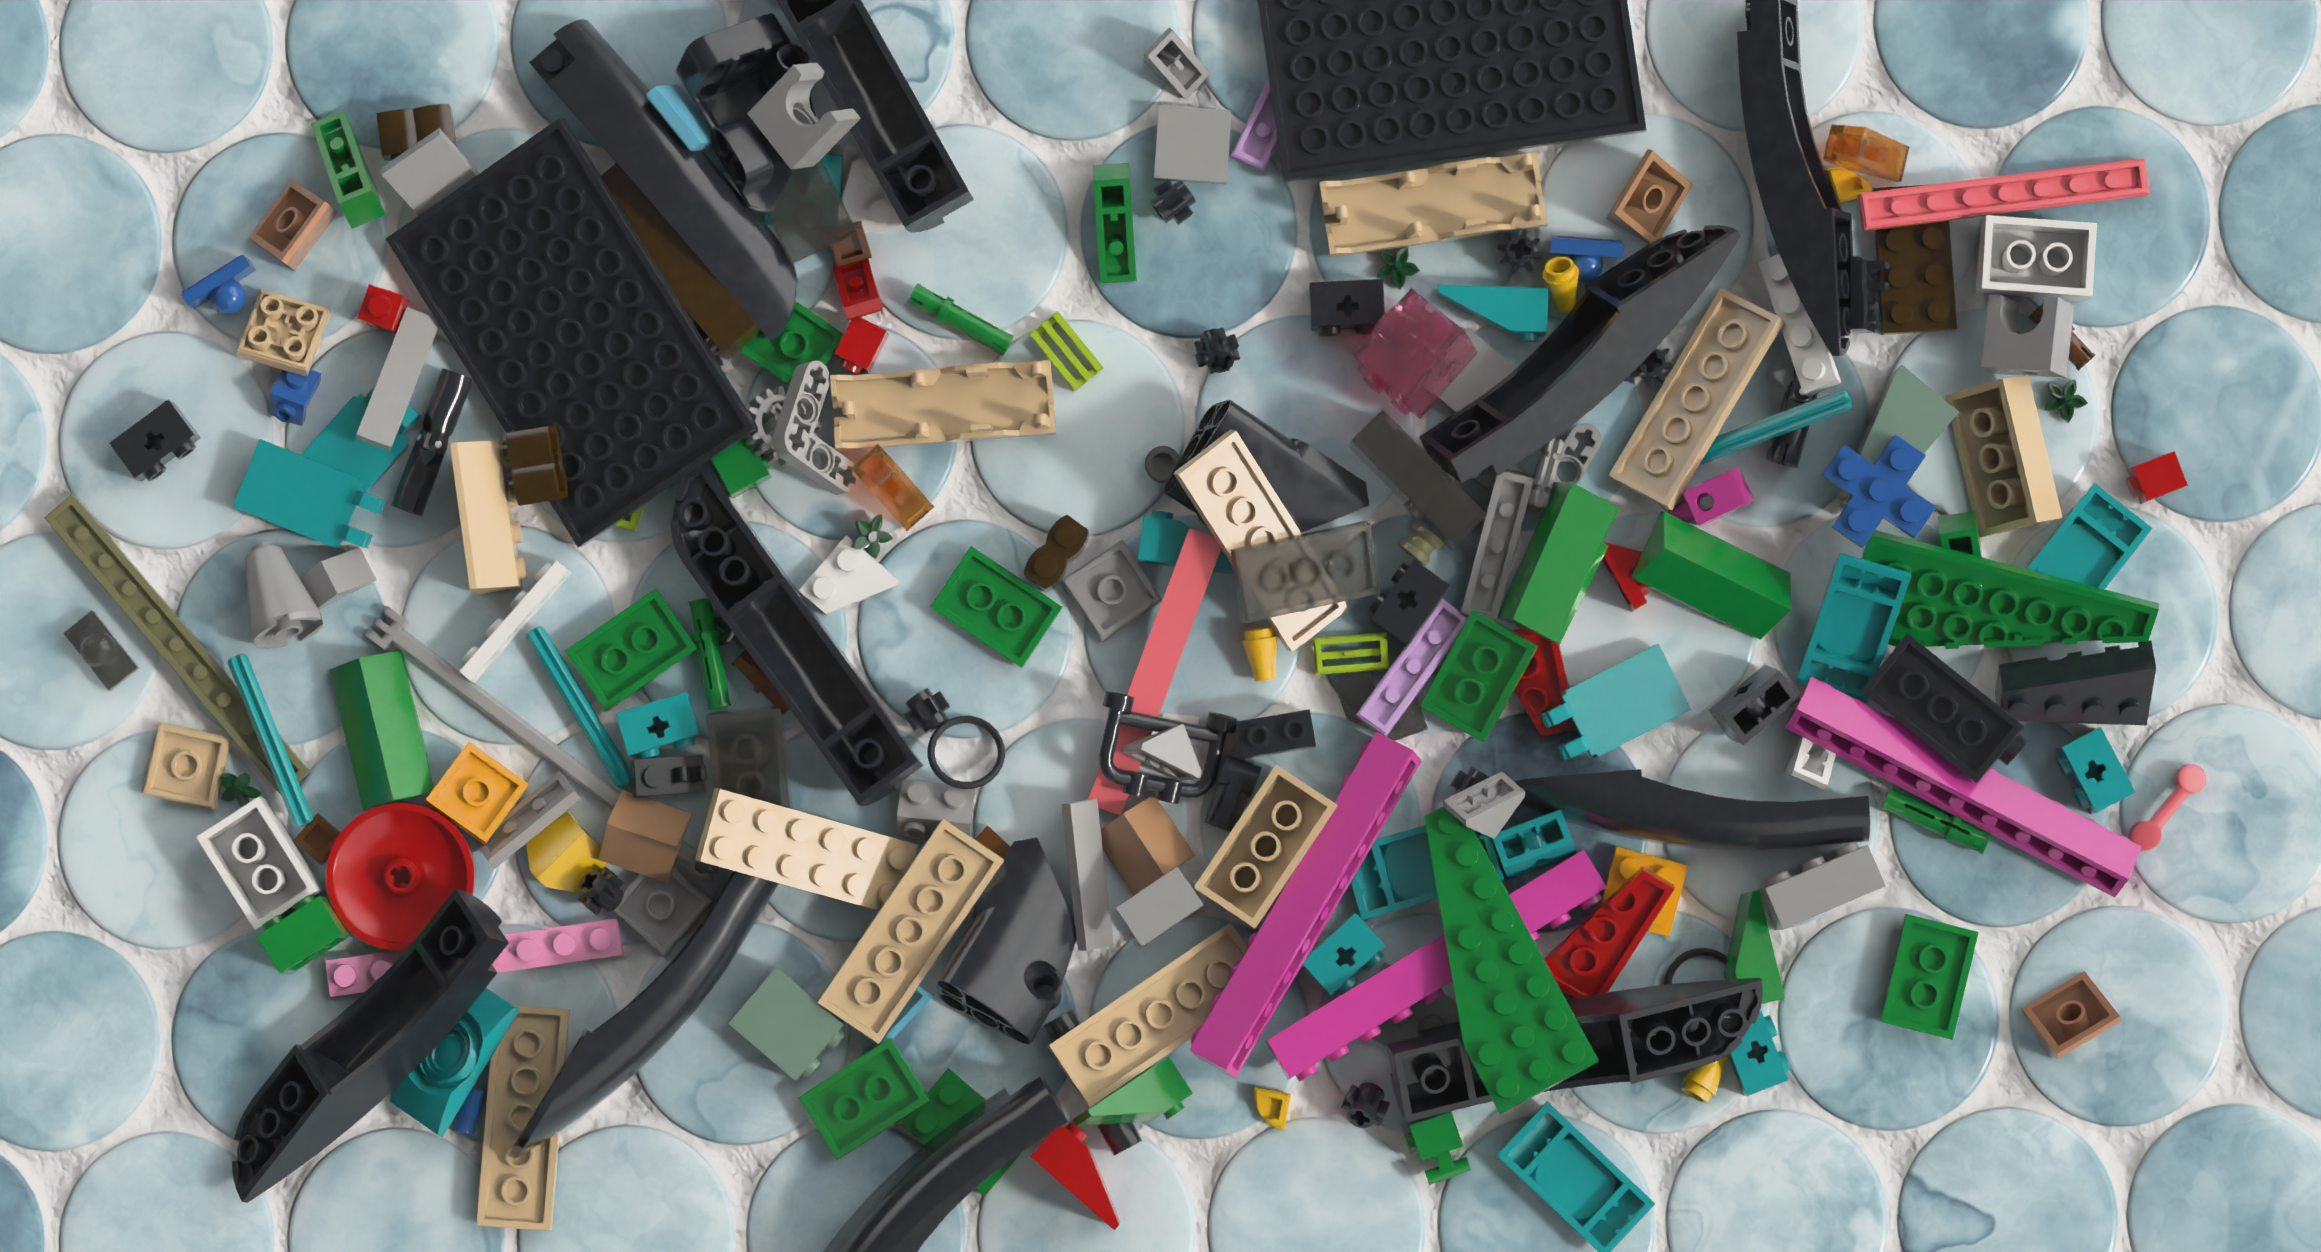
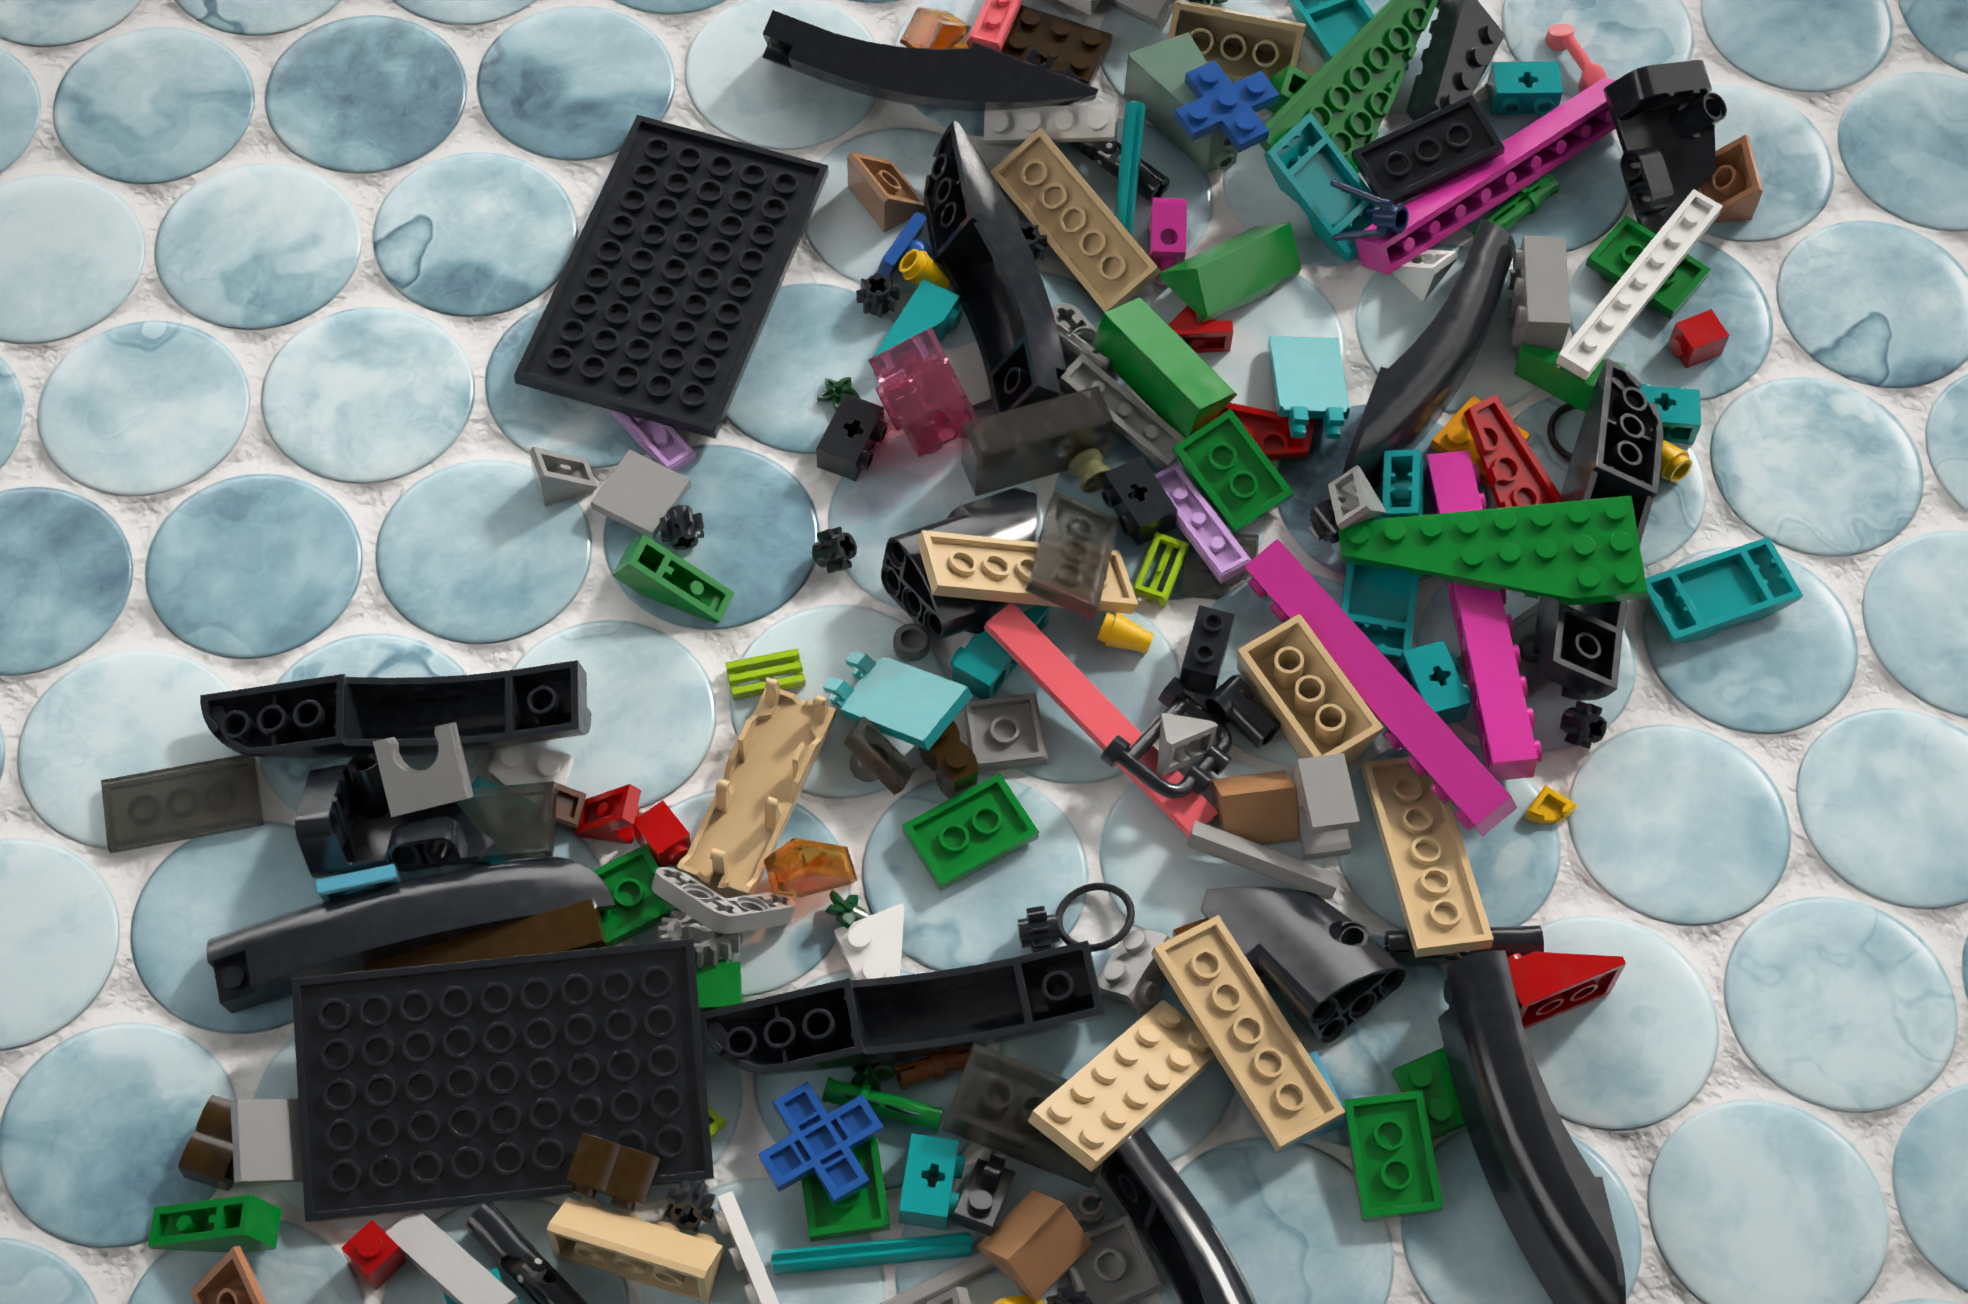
camera: 75 degrees left, 25 degrees down
(544, 540) = (690, 1205): none -> black gear
(642, 621) = (820, 1143): none -> blue plate
(788, 1025) = (1285, 1193): sand green panel -> none
(960, 319) = (674, 752): green pin -> none
(1022, 494) = (876, 757): none -> clear smoke tile
(1082, 486) = (898, 698): none -> tile
(1141, 1099) = (1502, 893): slope -> none
(1433, 204) = (800, 340): tan piece -> none
(1435, 1138) = (1640, 684): green brick -> none
(1754, 704) = (1358, 285): black brick -> none
(1832, 704) = (1385, 216): none -> dark blue plant
(1860, 1056) = (1698, 338): none -> red brick
(1885, 977) = (1638, 285): none -> white plate
(2078, 937) = (1665, 135): none -> black panel

